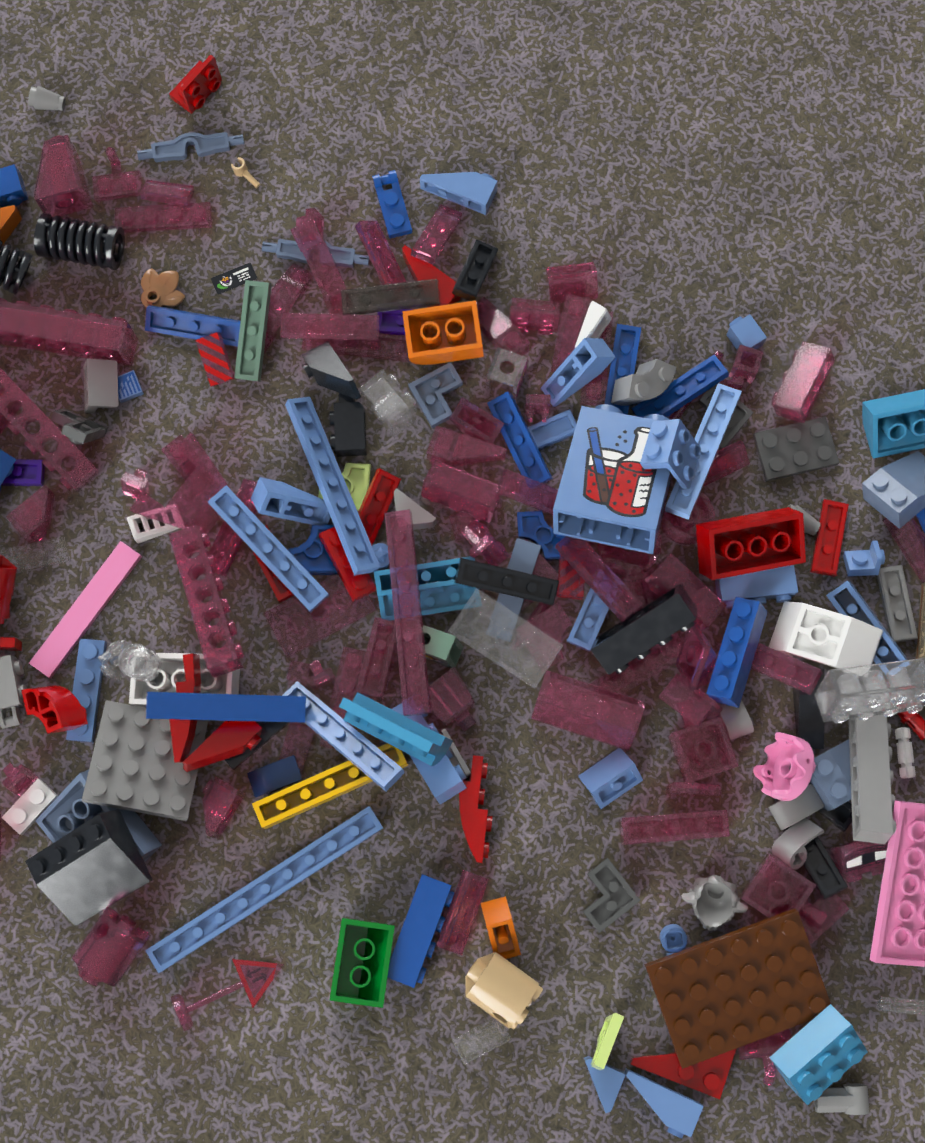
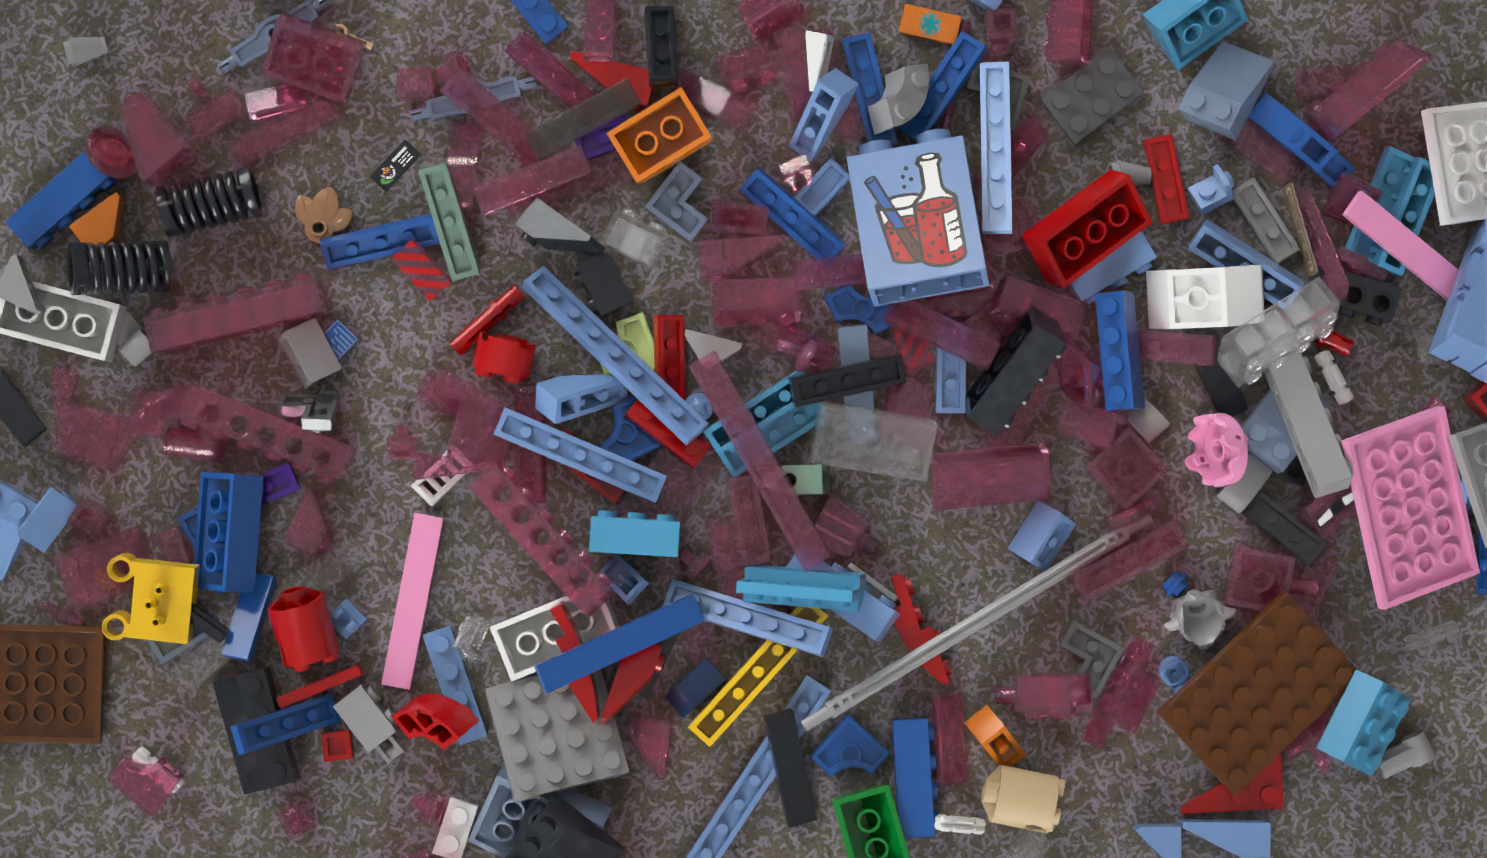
camera: 25 degrees left, 10 degrees up
(22, 174) = (110, 152): none -> clear pink tile
(28, 601) = (347, 618): none -> medium blue tile
(139, 663) = (506, 636): clear wheel -> none
(208, 170) = (313, 57): none -> clear pink brick
(245, 449) = (504, 356): none -> red brick
(247, 418) = (487, 319): none -> red pin
(259, 665) = (625, 579): none -> medium blue slope
(277, 222) = (416, 83): none -> clear pink panel
(281, 628) = (635, 534): none -> dark azure brick
(320, 876) = (790, 767): none -> black tile
(377, 882) = (849, 747): none -> blue tile
(439, 988) = (960, 824): none -> white axle
(513, 379) = (736, 158): clear piece -> none
(524, 822) = (975, 622): none -> light grey axle
(560, 909) = (1048, 695): none -> clear pink brick
(606, 1040) = (1149, 802): yellowish green tile -> none
(625, 942) = (1125, 697): none -> clear pink bracket
(673, 448) = (965, 169): medium blue bracket -> none
(689, 342) = (929, 24): none -> orange tile
(705, 865) = (1175, 584): none -> blue plate
(790, 845) = (1254, 524): light grey panel -> none

